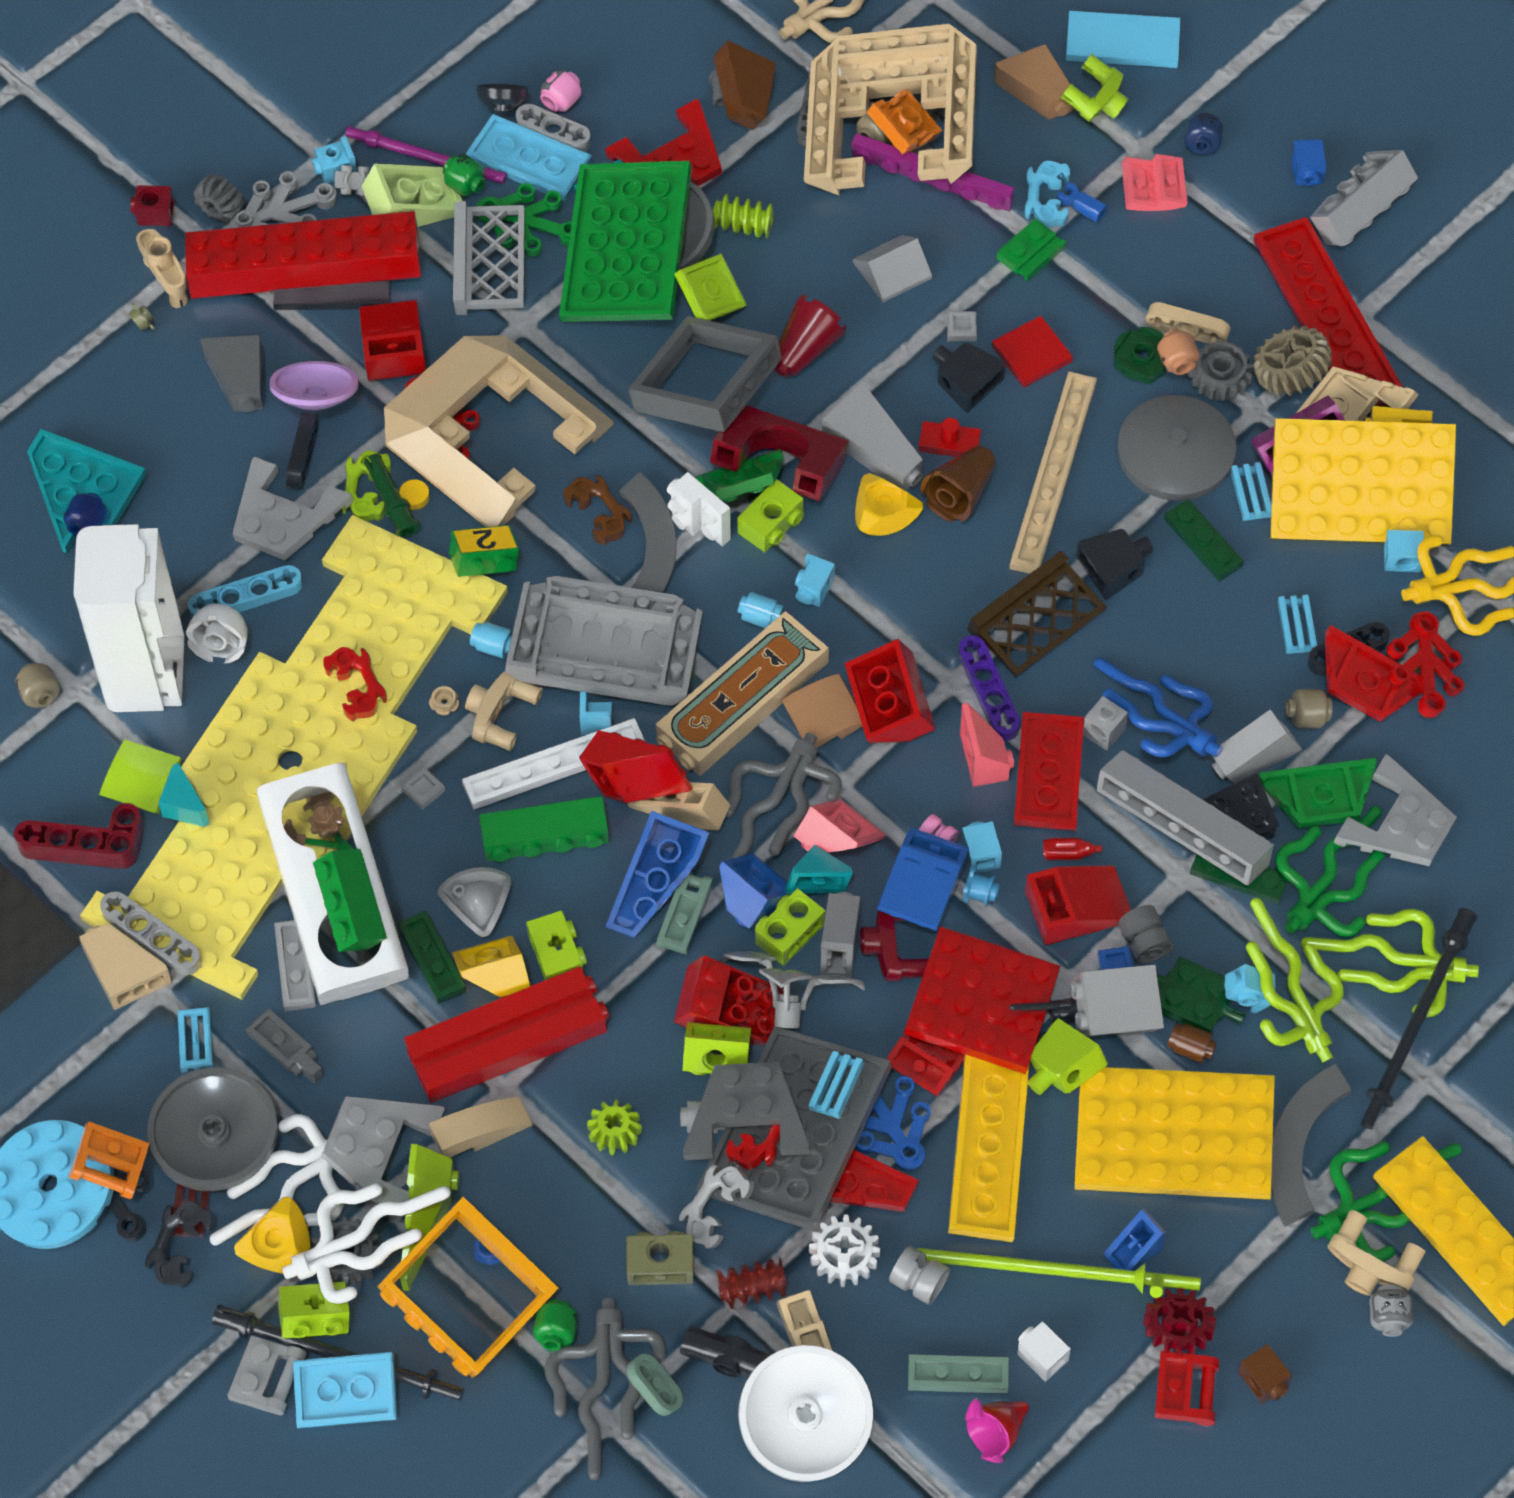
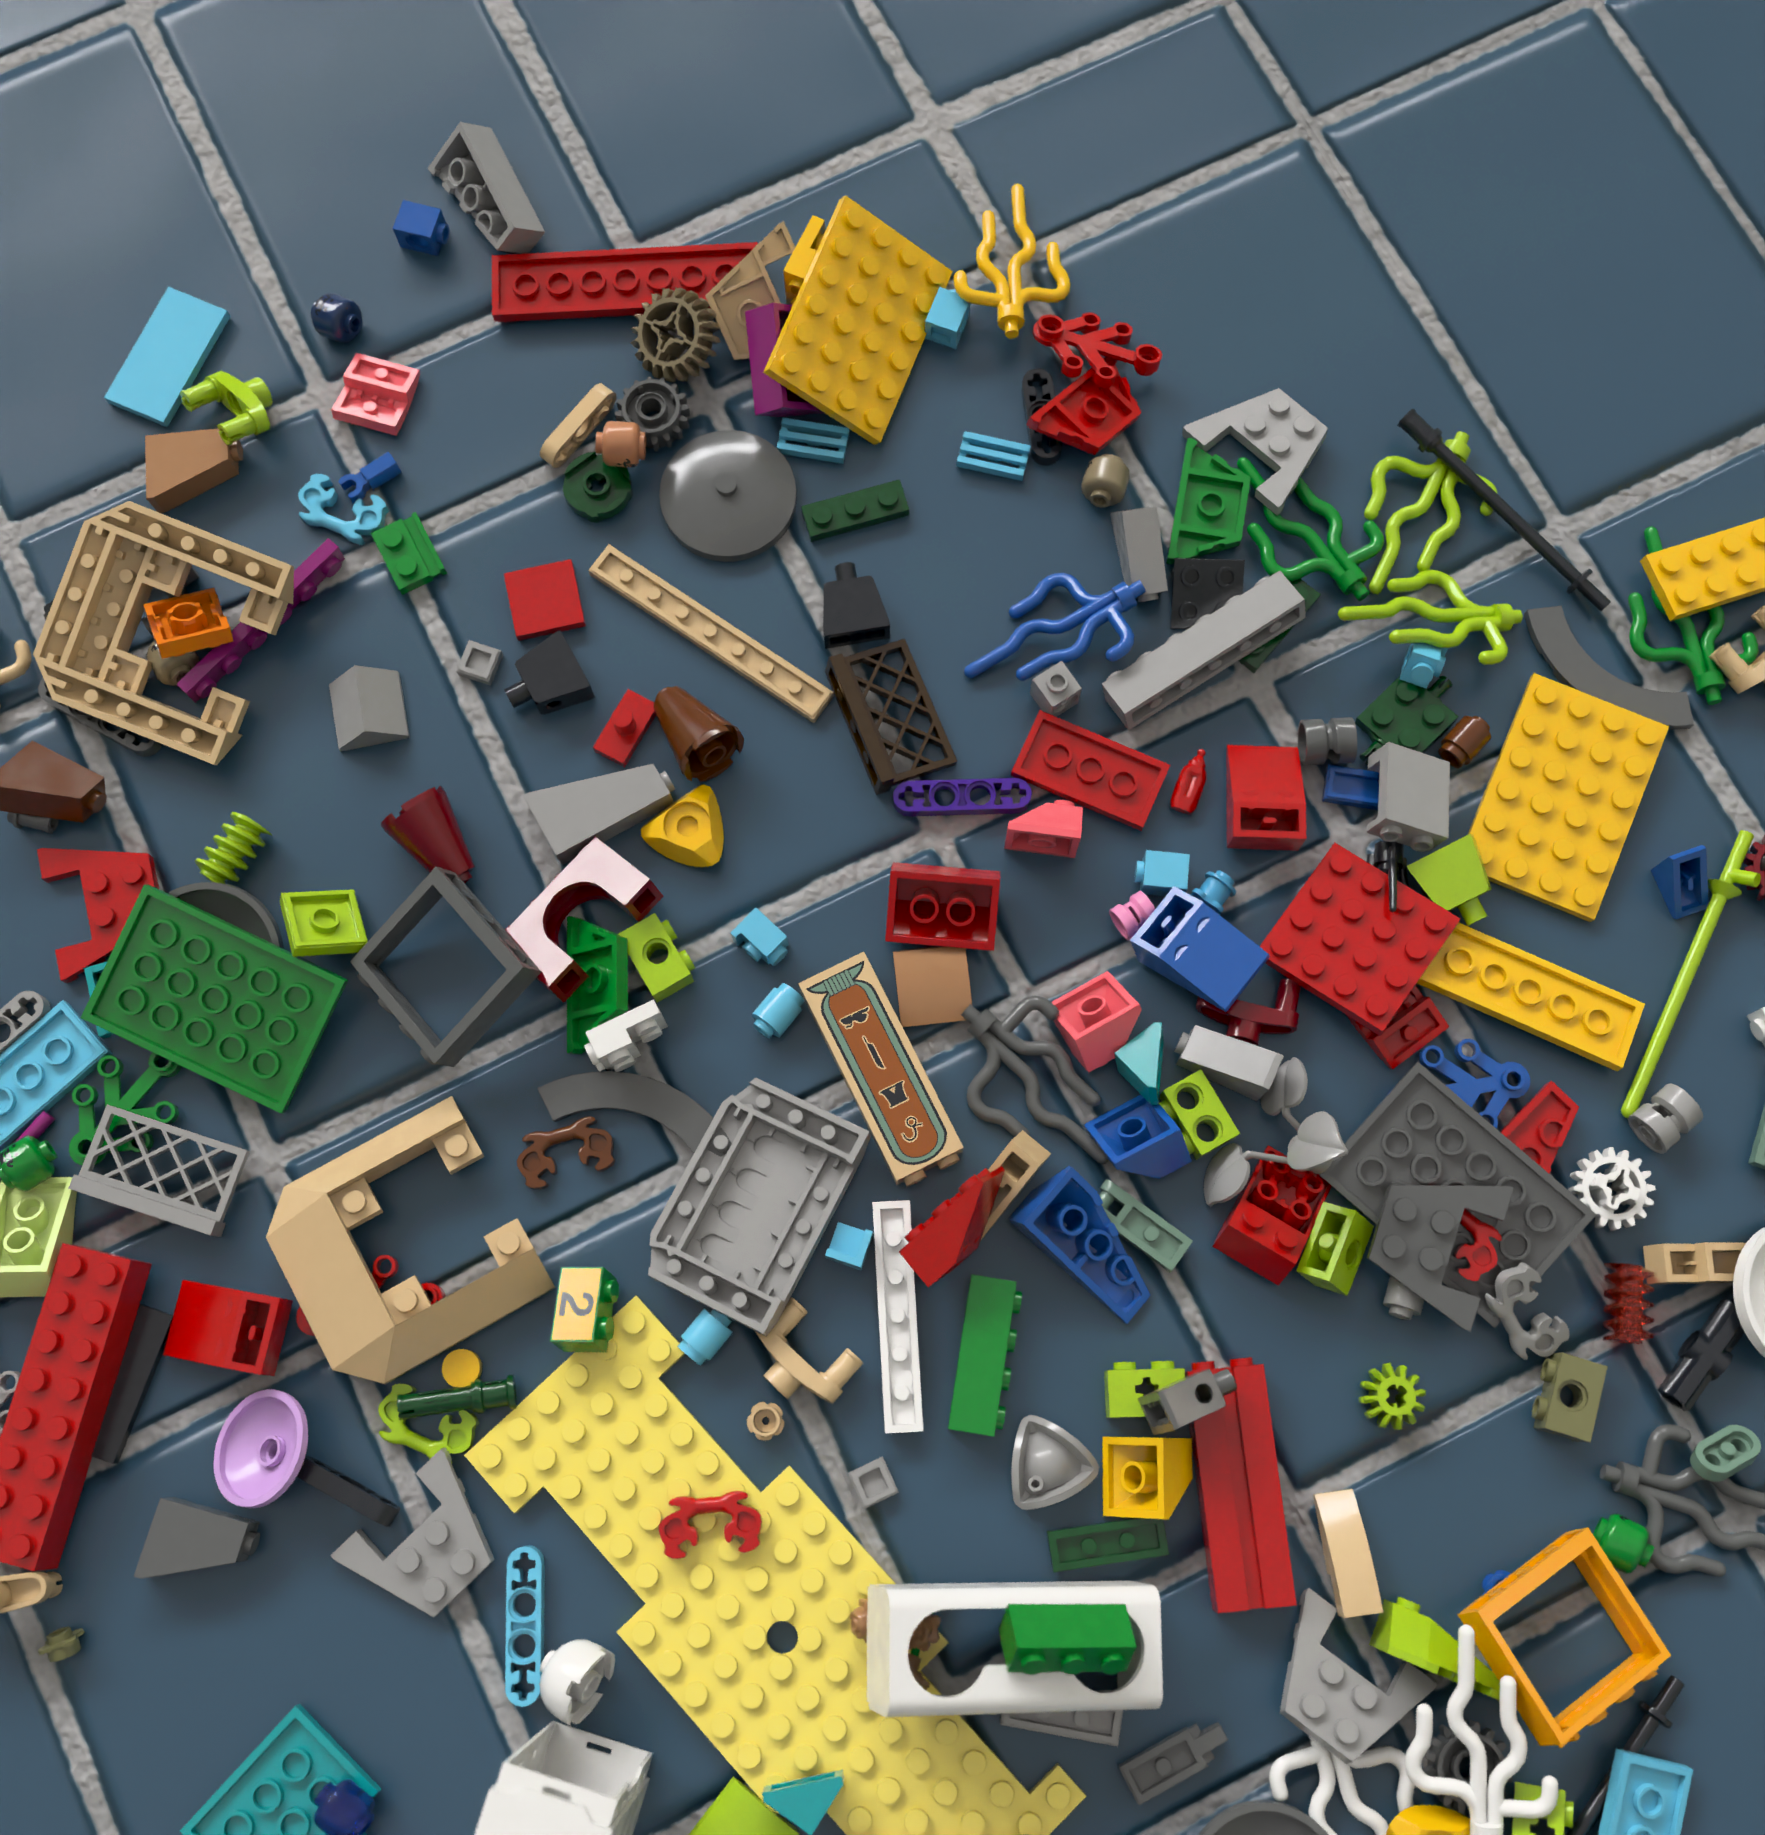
camera: 70 degrees left, 15 degrees up
(555, 957) = (1186, 1400): none -> dark grey torso
(845, 1062) = (1456, 1151): medium azure tile -> none

